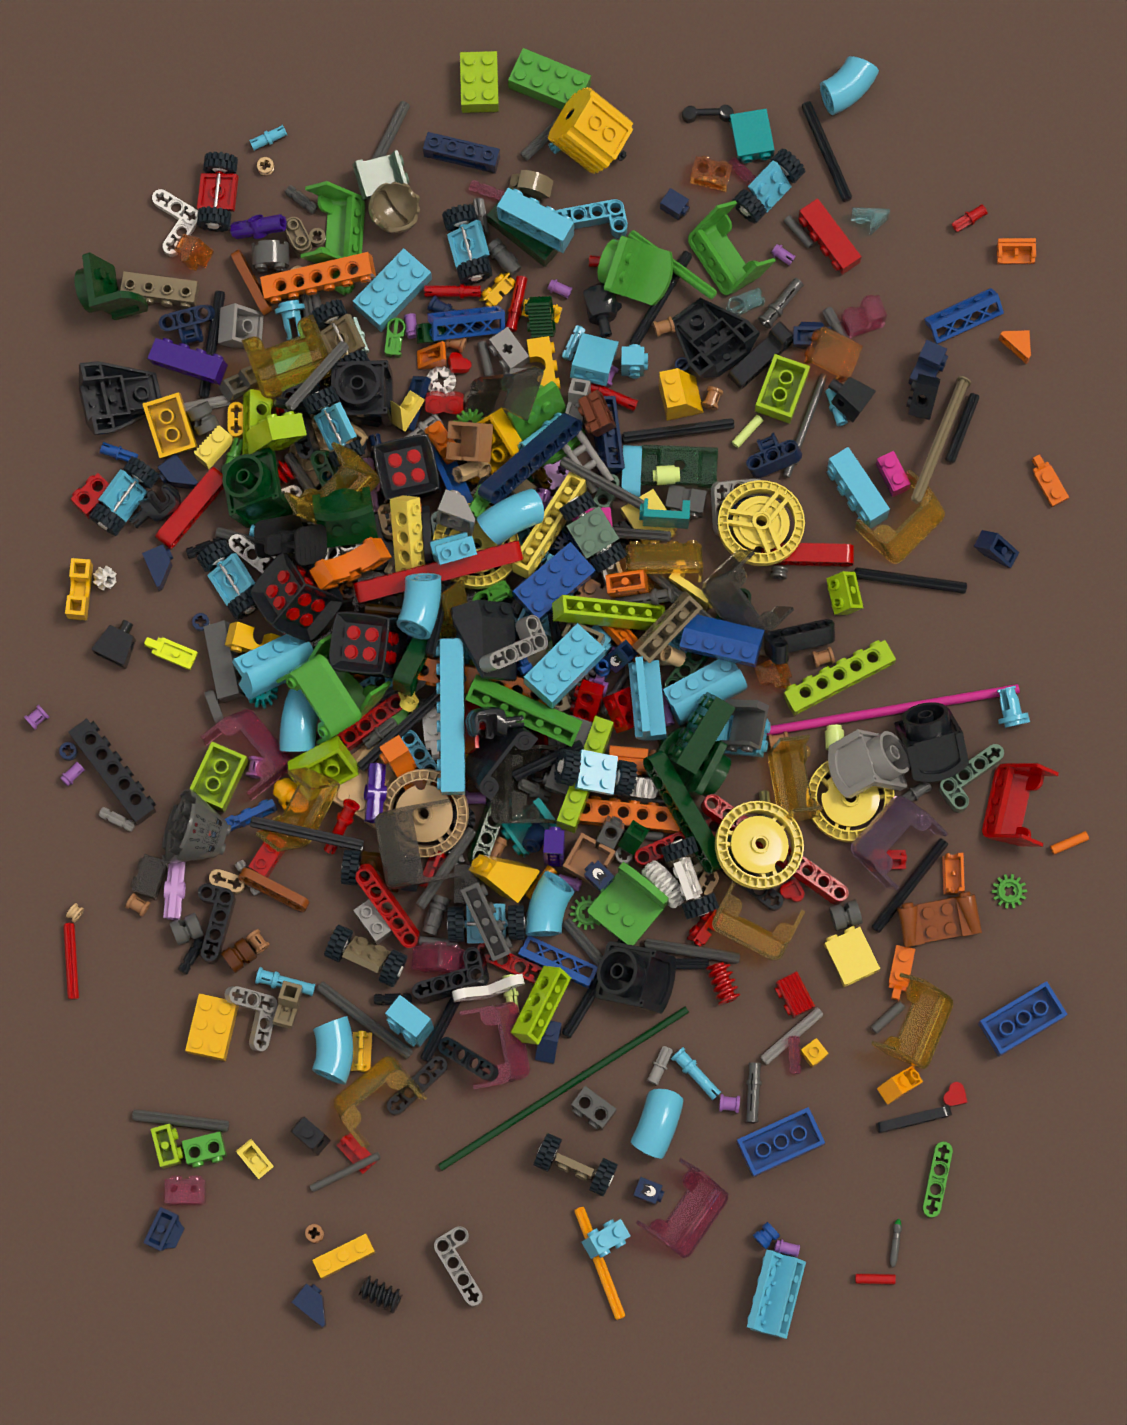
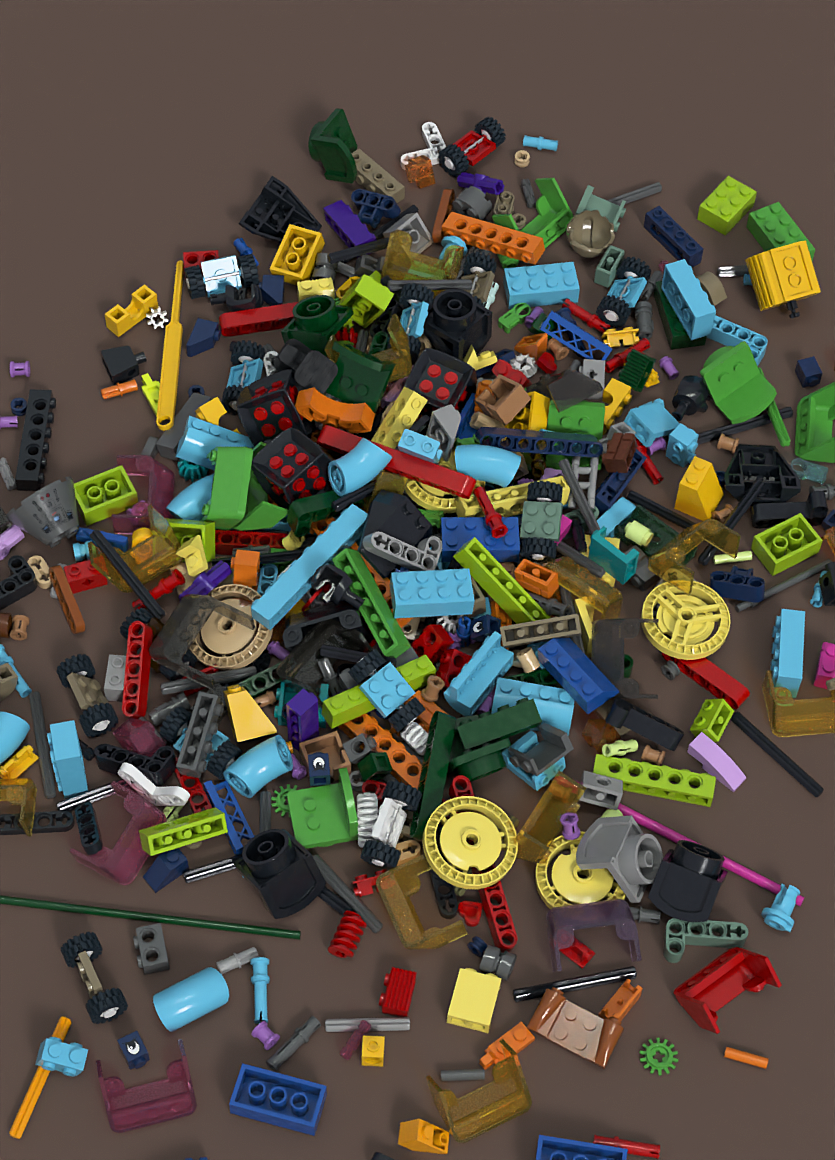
camera: 35 degrees right, 20 degrees down
(135, 669) = (119, 389): none -> orange axle
(151, 605) = (171, 357): none -> yellow piece
(220, 381) = (358, 250): none -> black axle
(244, 839) = (81, 551): none -> medium azure wheel
(348, 777) = (194, 555): none -> light yellow slope
(434, 226) = (608, 266): none -> sand green brick
(556, 562) = (492, 518): none -> red pin
(621, 513) = (578, 535): none -> black axle
(622, 735) = (434, 685): none -> medium nougat bush
(712, 485) = (668, 559): none -> clear yellow windscreen
(725, 400) = (734, 518): none -> black axle
(796, 672) = (620, 748): none -> yellowish green pin
(812, 720) = (601, 790): none -> light grey brick
(813, 771) = (570, 826): none -> medium lavender bush
(820, 914) = (477, 946): none -> dark blue bush
(873, 624) = (716, 762): none -> lavender slope
(1043, 974) = (633, 1147): none -> red pin

